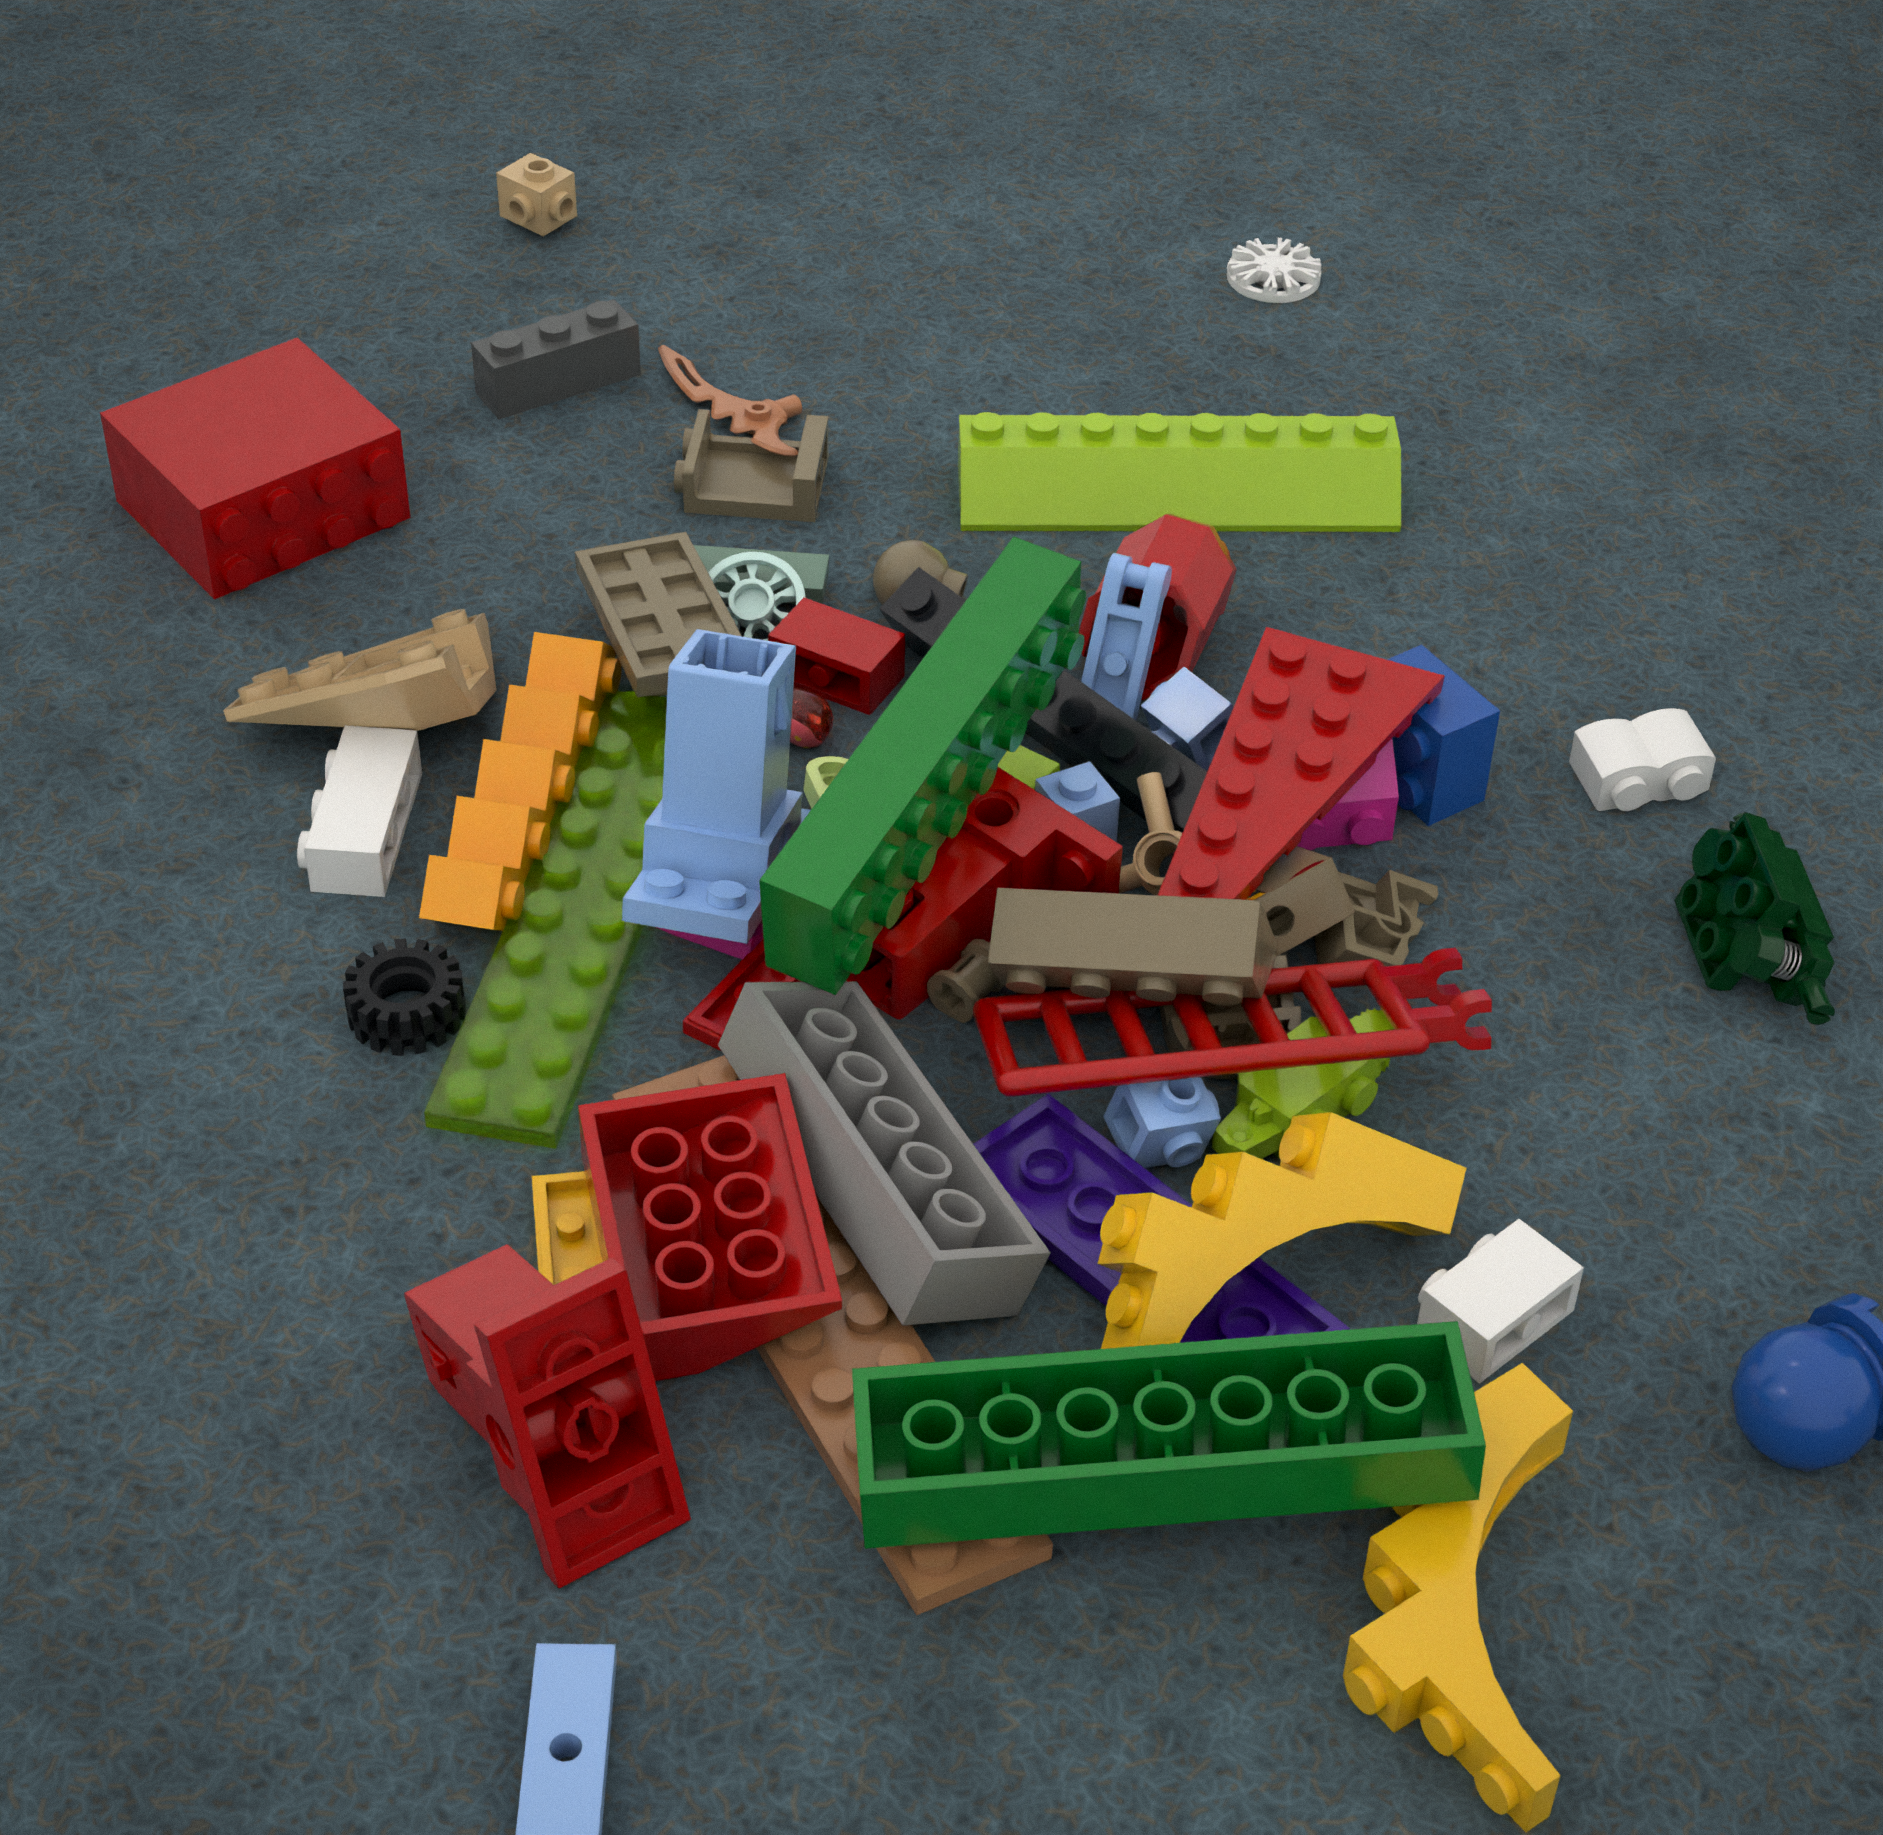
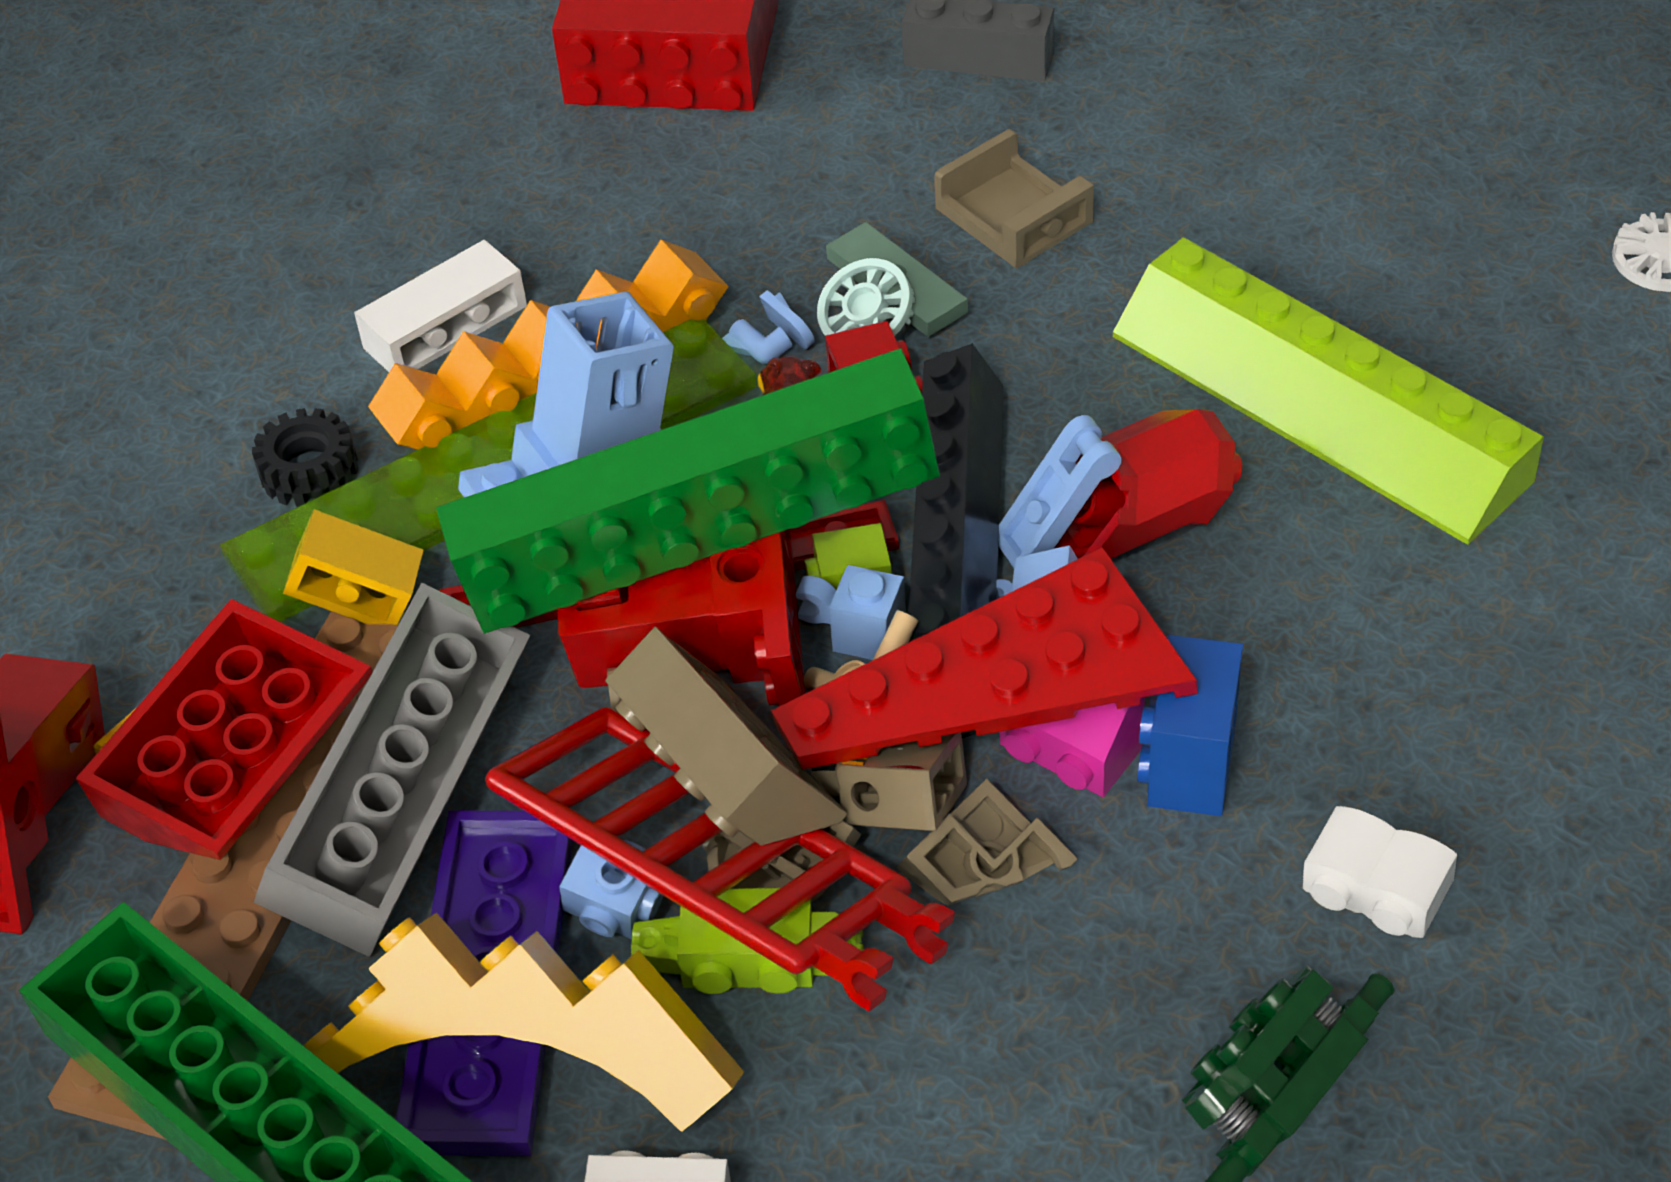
camera: 50 degrees right, 5 degrees up
(394, 685) = (556, 228): tan wedge -> none
(615, 1038) = (353, 570): none -> yellow brick
(651, 603) = (770, 277): dark tan plate -> none
(752, 417) = (1068, 153): nougat piece -> none
(904, 558) = (1012, 354): dark tan piece -> none

